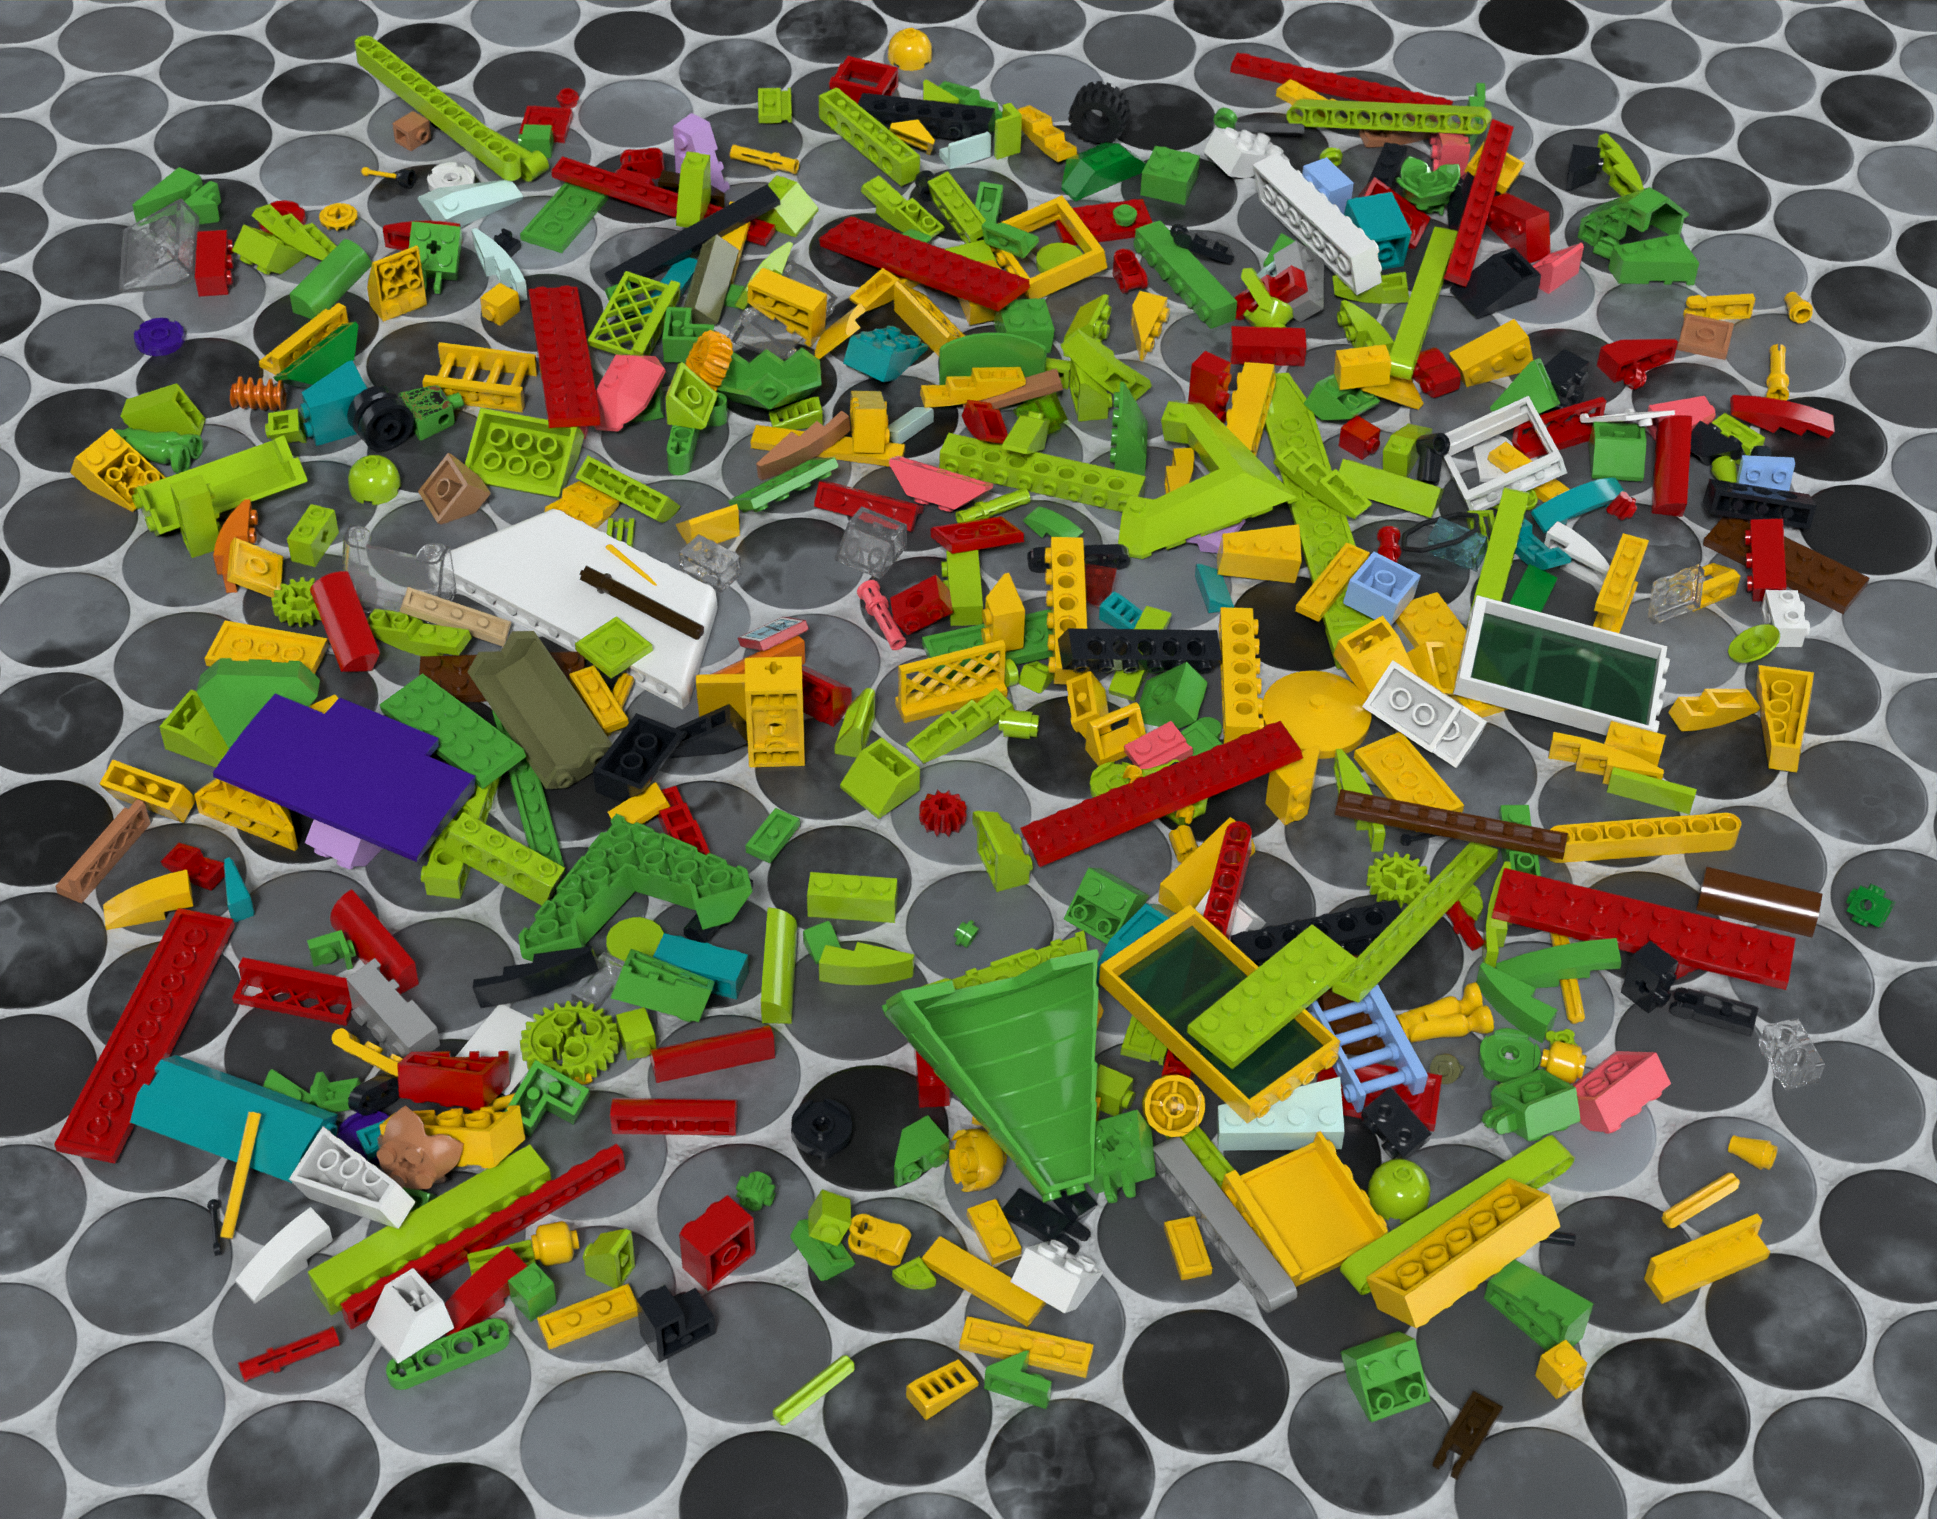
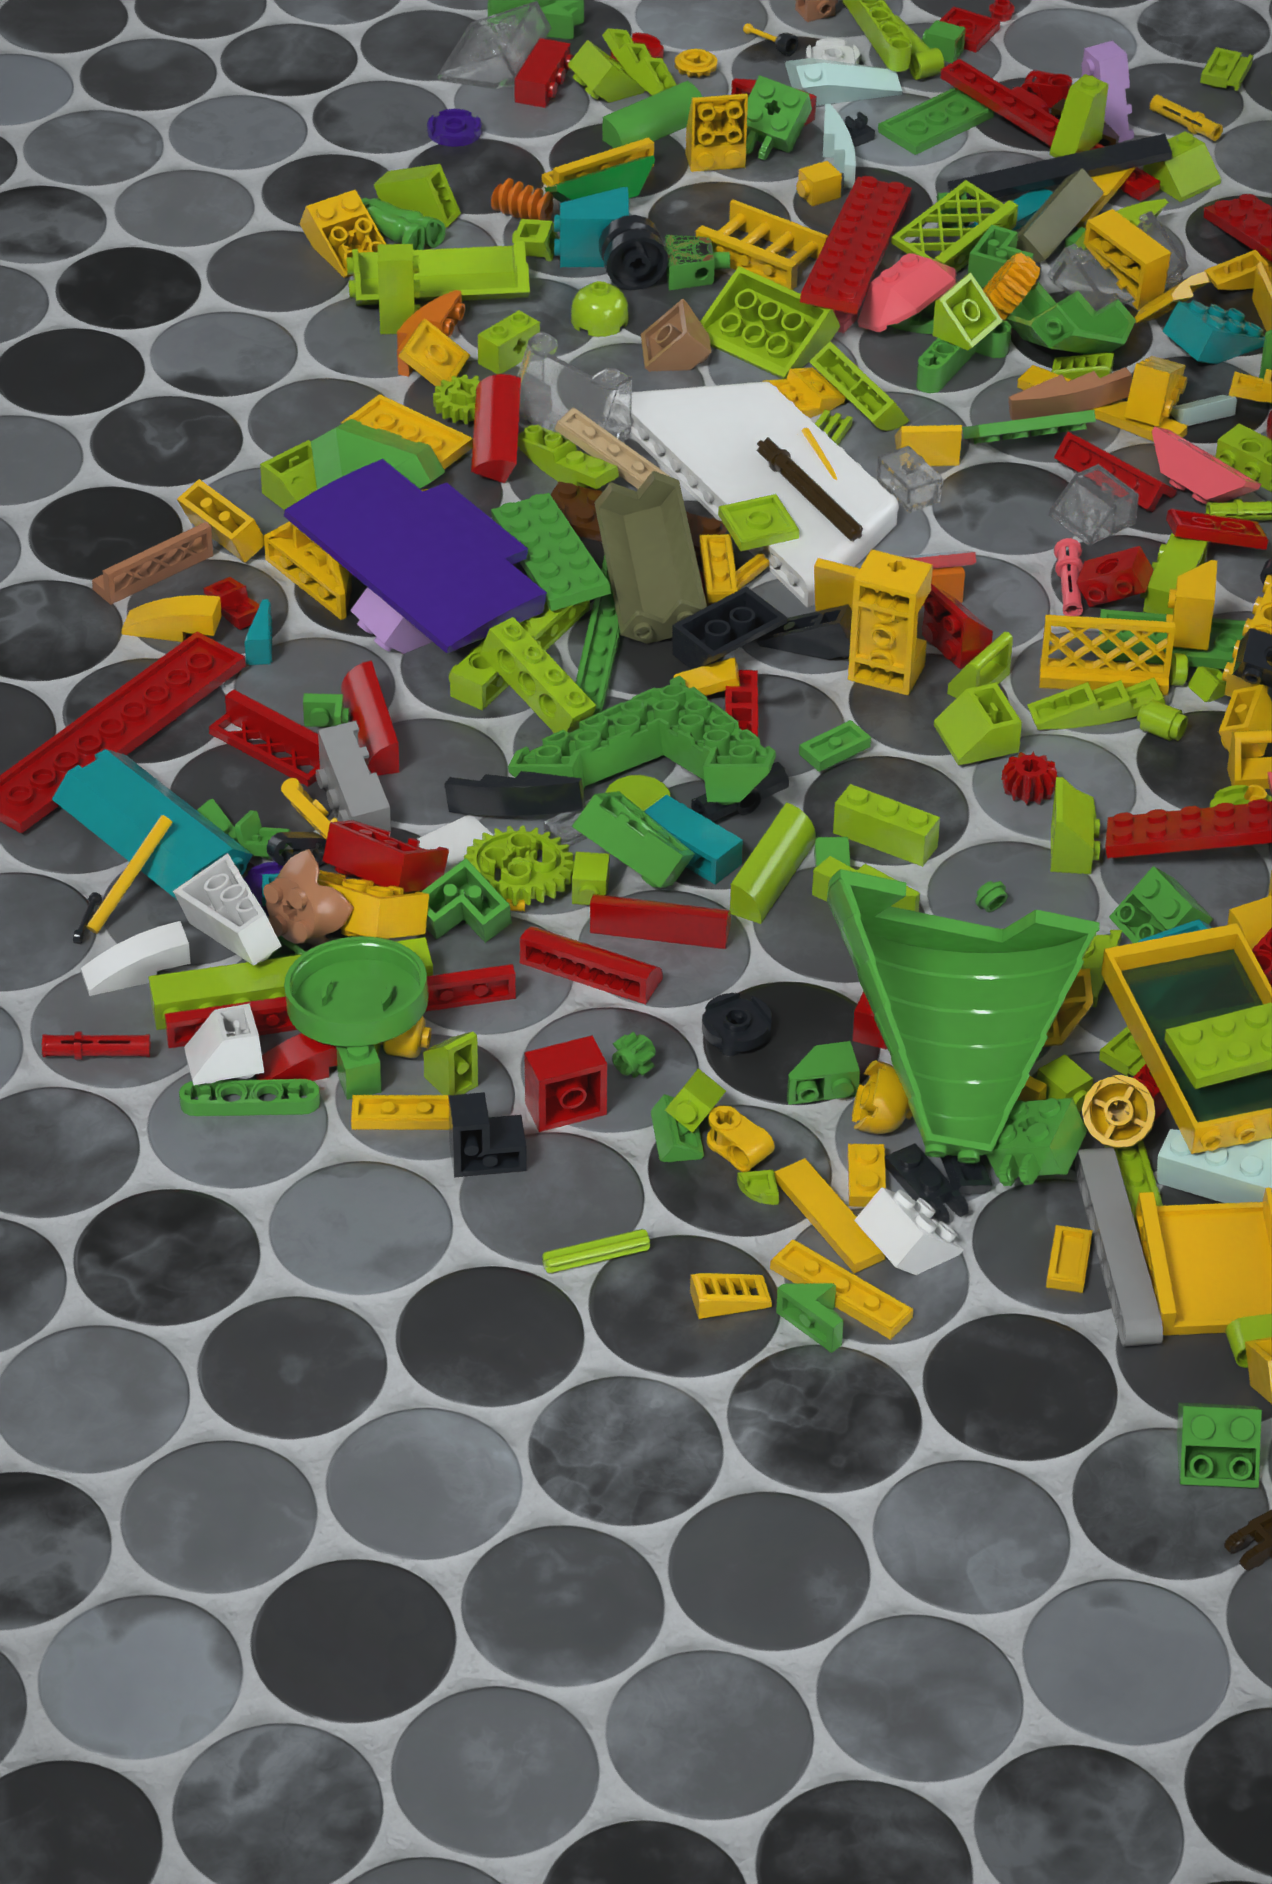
camera: 25 degrees right, 5 degrees down
(503, 1223) = (356, 991): none -> bright green piece

